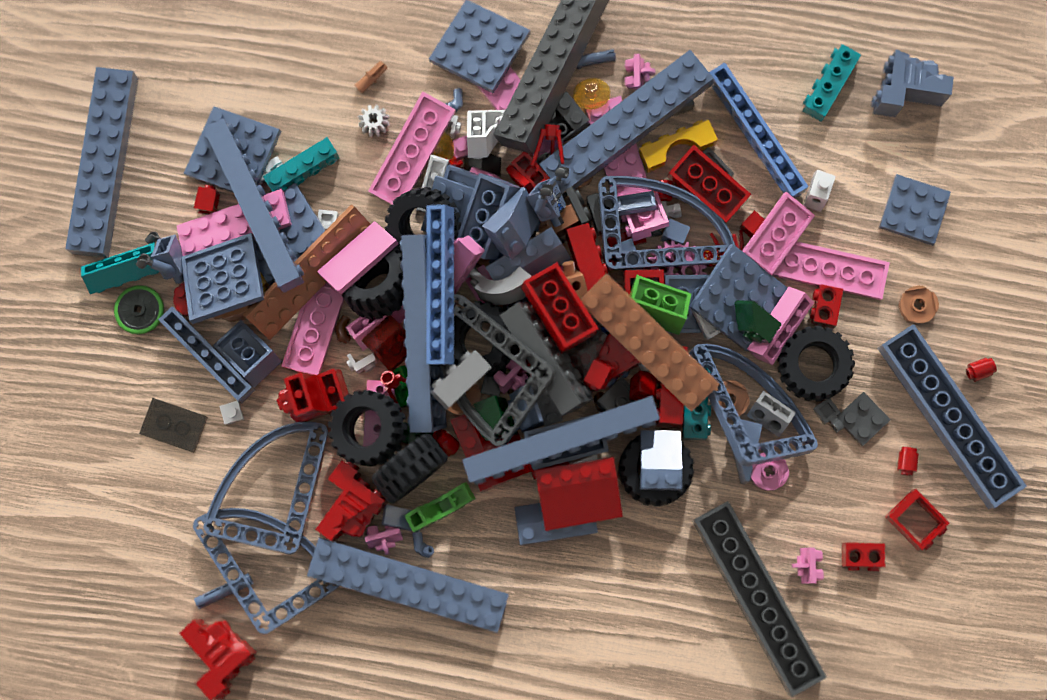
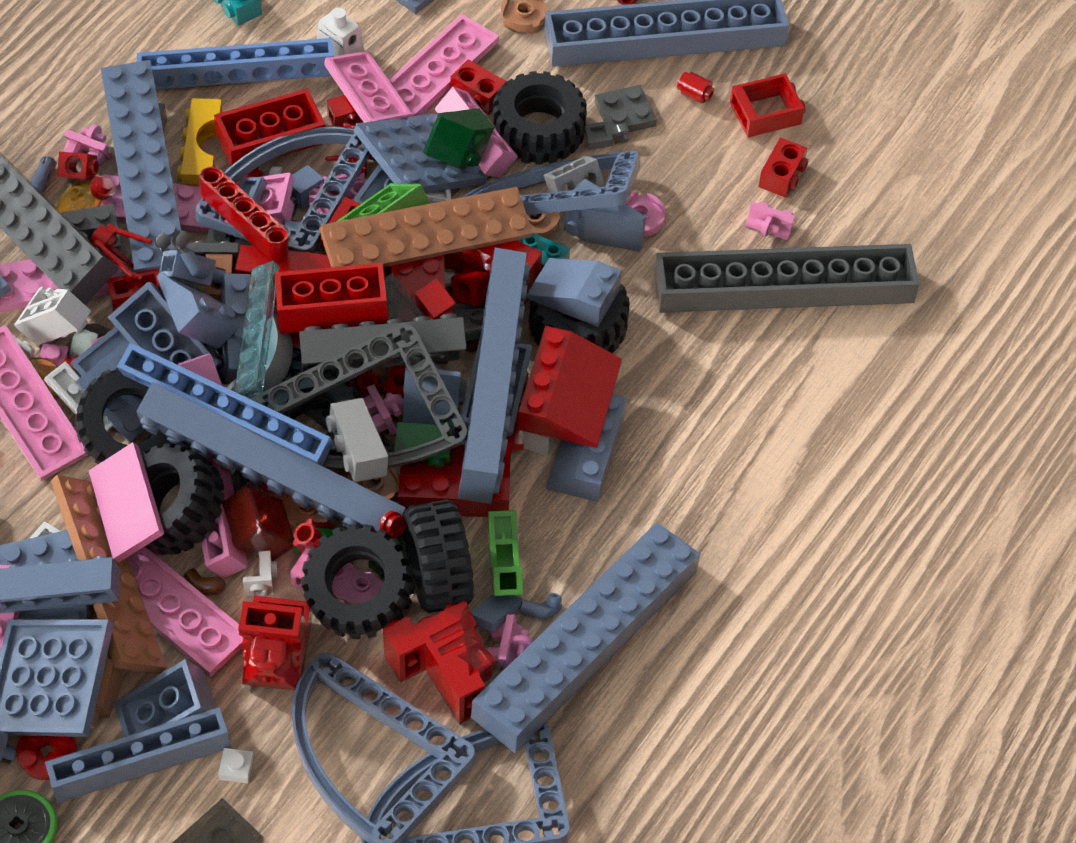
camera: 70 degrees left, 25 degrees down
(412, 430) = (393, 524): none -> red plate
(515, 271) = (257, 330): none -> clear light blue plate
(602, 104) = (102, 187): none -> red plate
(613, 204) = (244, 214): none -> red beam
(614, 77) = (67, 165): none -> red brick

